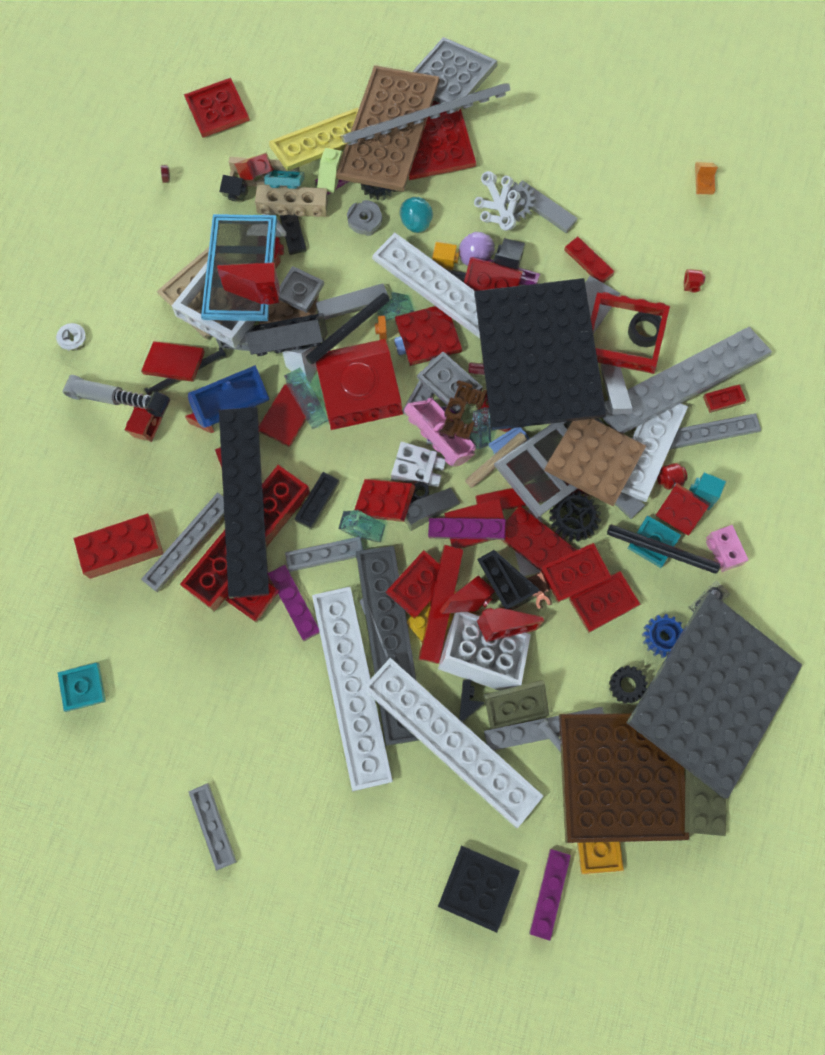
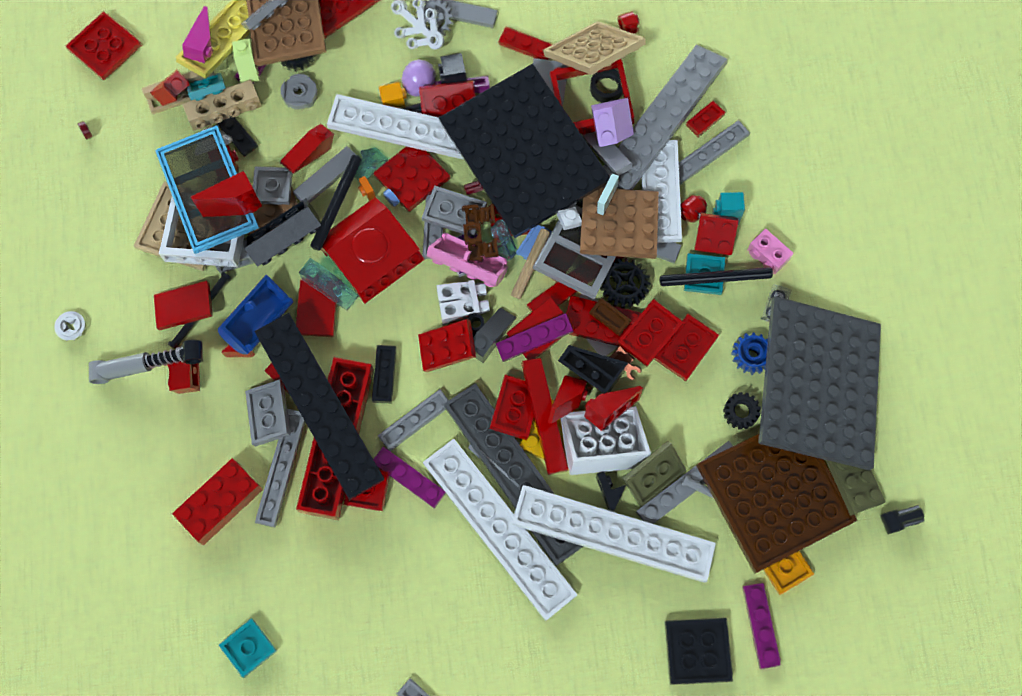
camera: 25 degrees left, 0 degrees up
(198, 488) = (267, 413): none -> light grey plate
(233, 188) = (159, 116): black brick -> none
(296, 134) = (198, 41): none -> dark pink slope
(297, 358) = (302, 252): white slope -> none
(348, 270) = (310, 147): none -> red slope
(361, 525) = (437, 377): clear light blue slope -> none
(416, 214) = (346, 68): teal piece -> none
(545, 541) = (610, 316): none -> reddish brown tile
(550, 434) = (569, 218): none -> white plate
(595, 427) = (607, 194): none -> light aqua tile
(633, 362) = (612, 121): none -> lavender slope
(649, 288) = (594, 47): none -> tan plate
(729, 859) = (898, 520): none -> black piece

